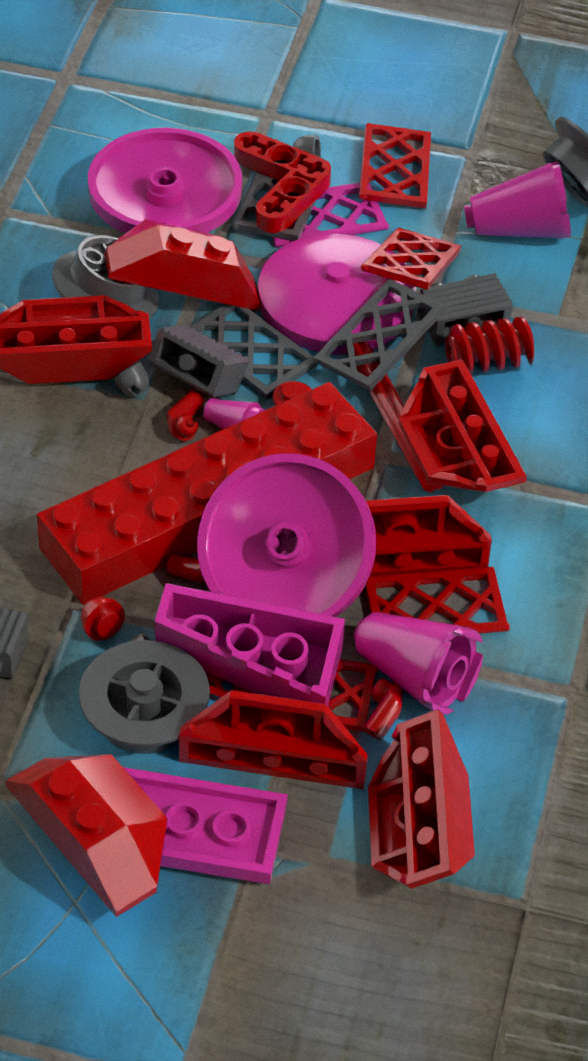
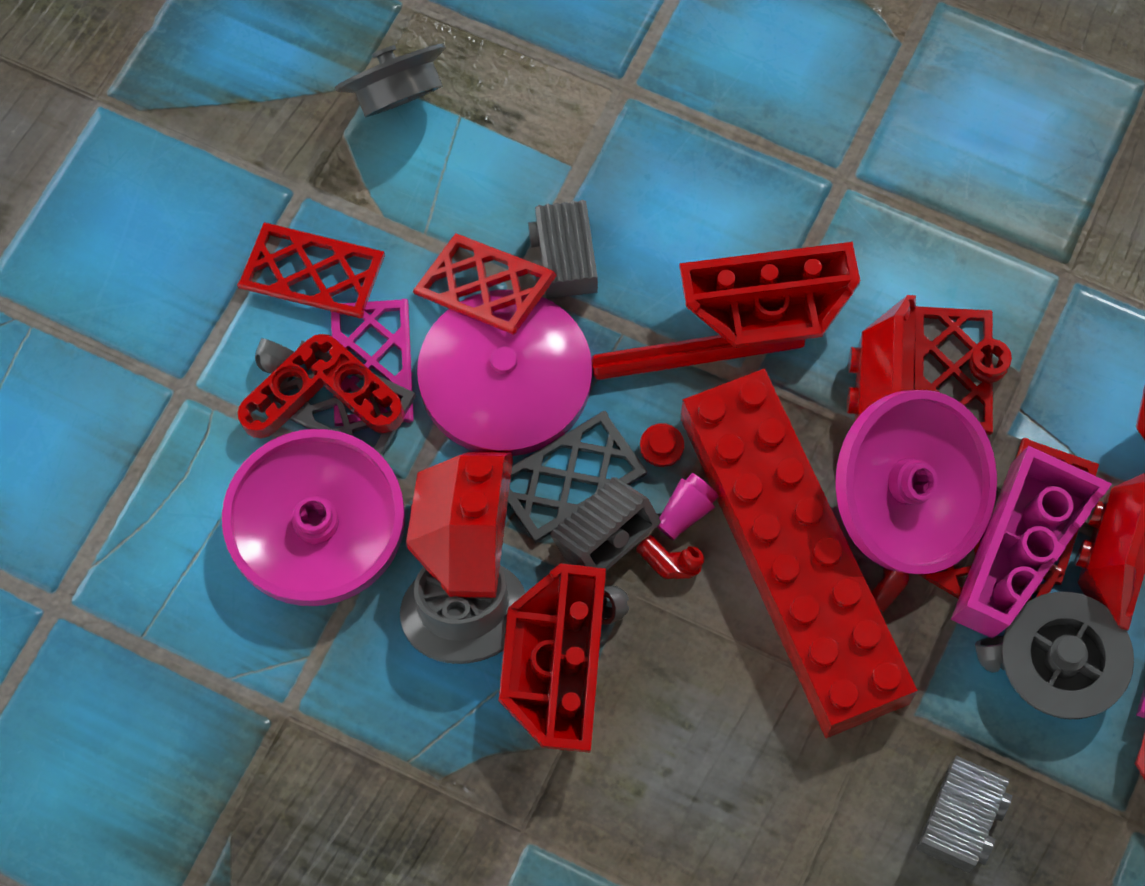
camera: 75 degrees left, 20 degrees up
(102, 618) = (950, 684): red plate -> none
(388, 358) = (609, 303): dark grey window -> none
(389, 708) = (1085, 434): red arm -> none
(422, 656) = (1044, 394): dark pink cone -> none
(449, 609) = (990, 374): none -> red bush
(490, 343) = (631, 239): red piece -> none
(523, 206) = (431, 153): dark pink cone -> none

